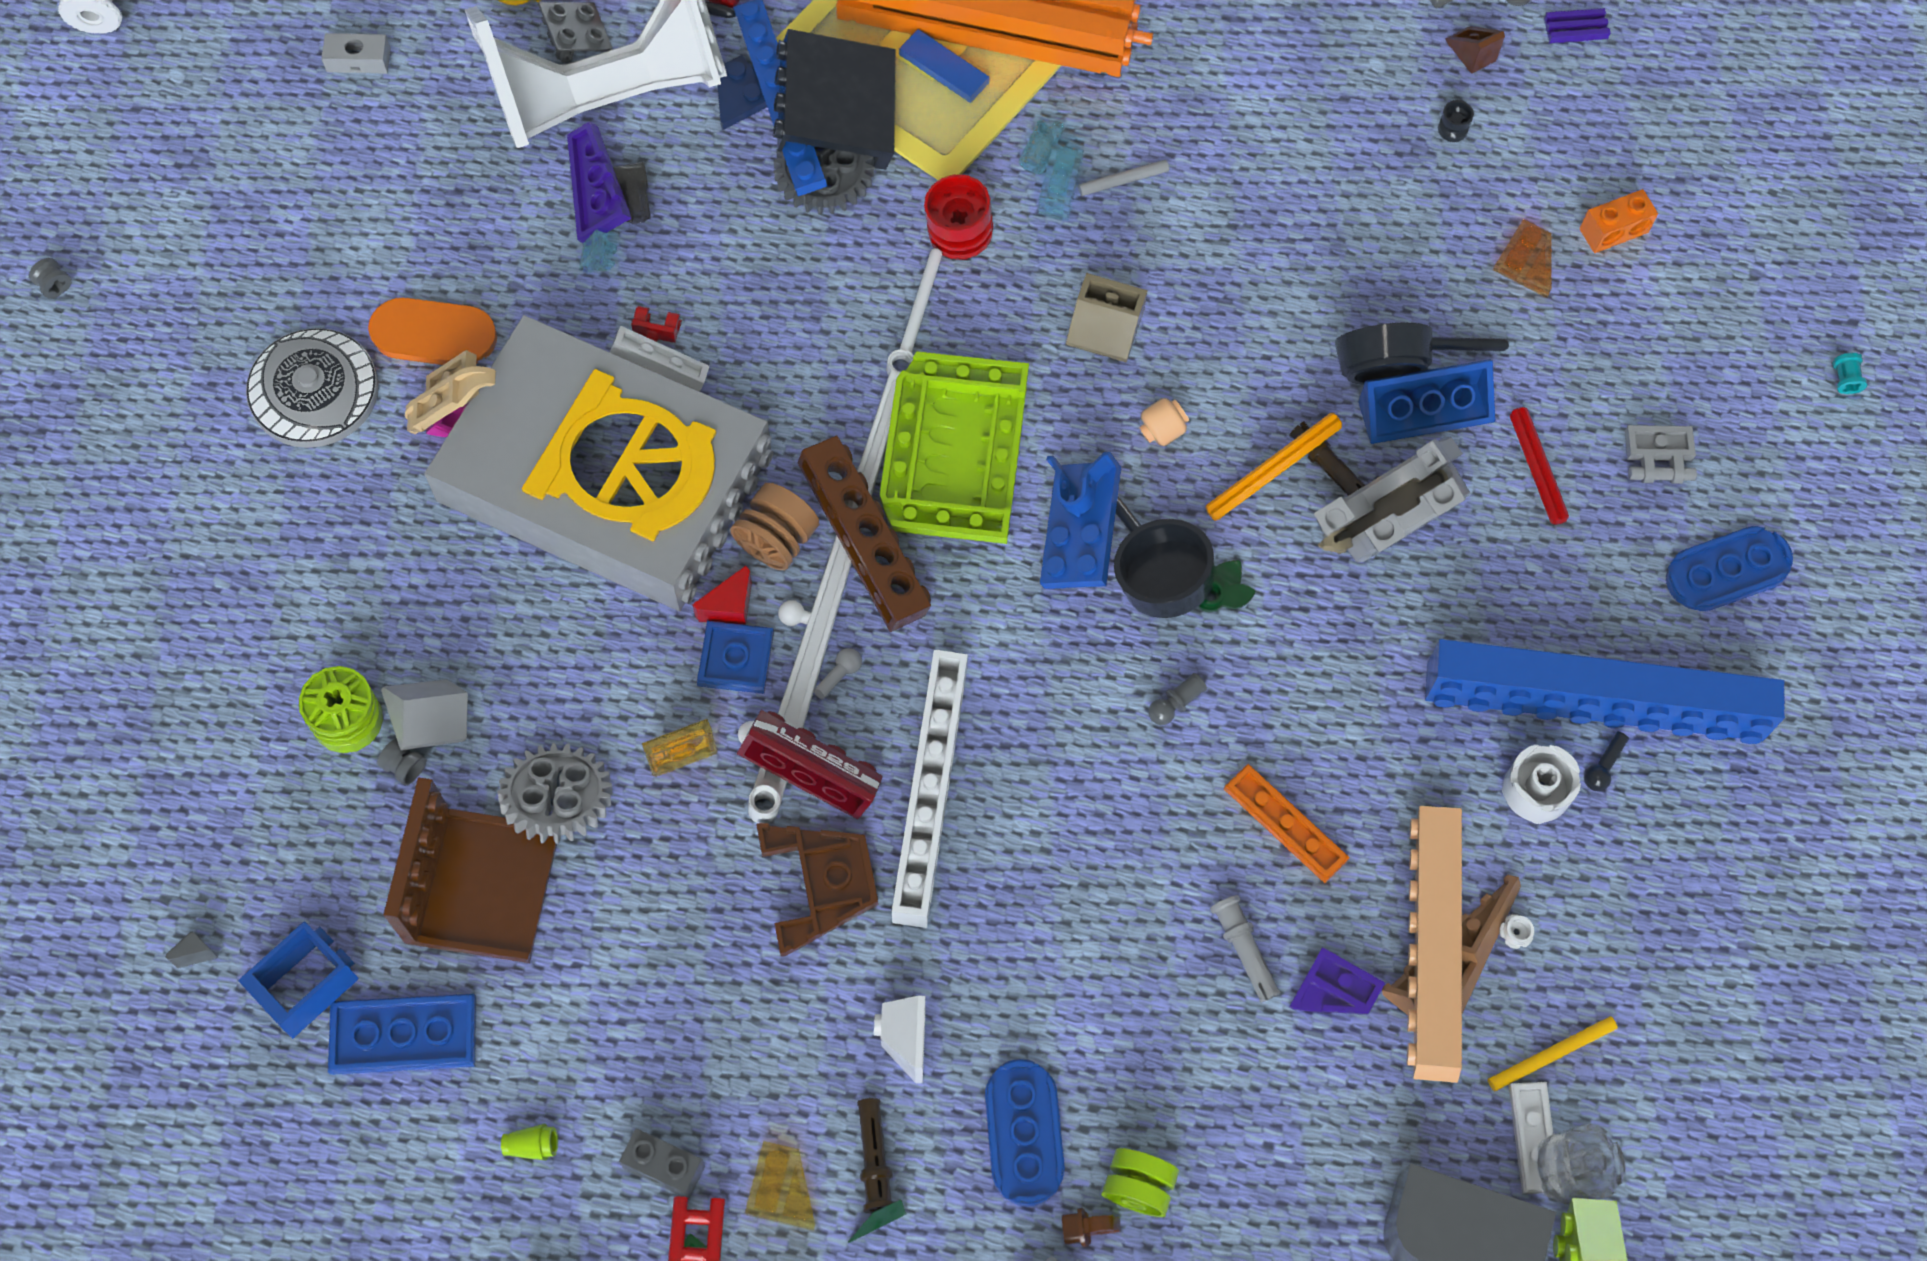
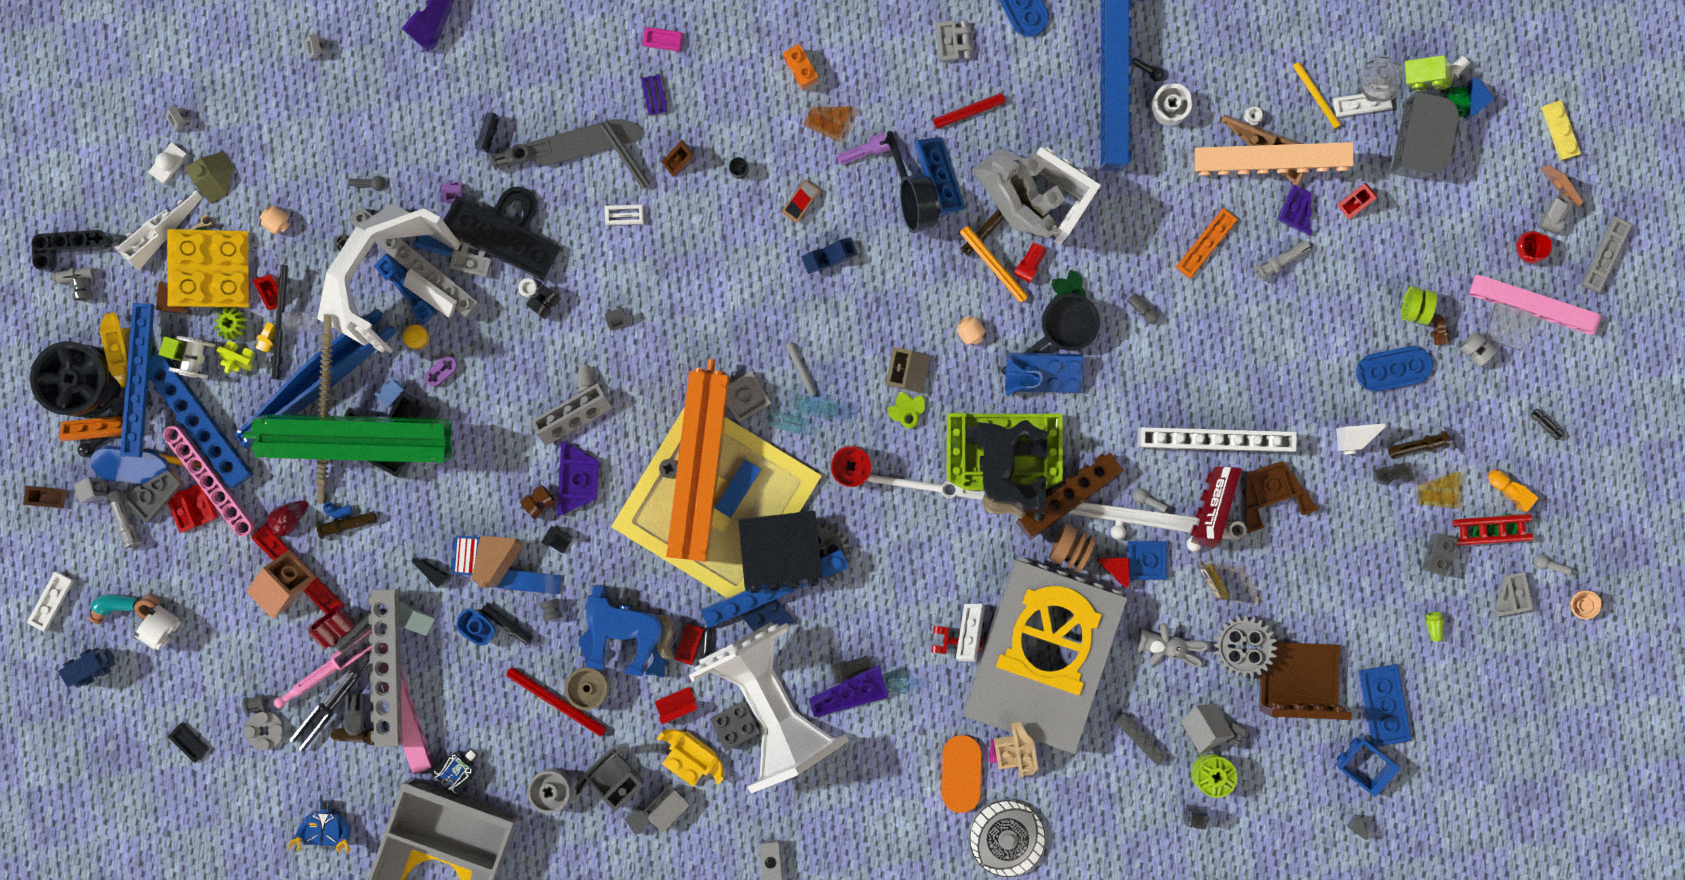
camera: 90 degrees left, 20 degrees up
(275, 674) = (1195, 817): none -> clear smoke leg
(430, 607) = (1139, 739): none -> dark grey piece
(575, 676) = (1174, 648): none -> light grey animal
(827, 1088) = (1387, 474): none -> clear smoke leg
(930, 414) = (999, 451): none -> black piece
(1045, 317) = (906, 406): none -> lime plate
(1087, 97) = (746, 397): none -> light grey plate
(1264, 522) = (1028, 266): none -> red piece
(1307, 240) = (829, 256): none -> dark blue brick
(1348, 1097) = (1357, 200): none -> red slope
(1368, 589) = (1073, 182): none -> white bracket
(1398, 201) = (800, 201): none -> slope
(1483, 314) = (872, 146): none -> medium lavender piece
(1665, 46) = (662, 39): none -> dark pink tile

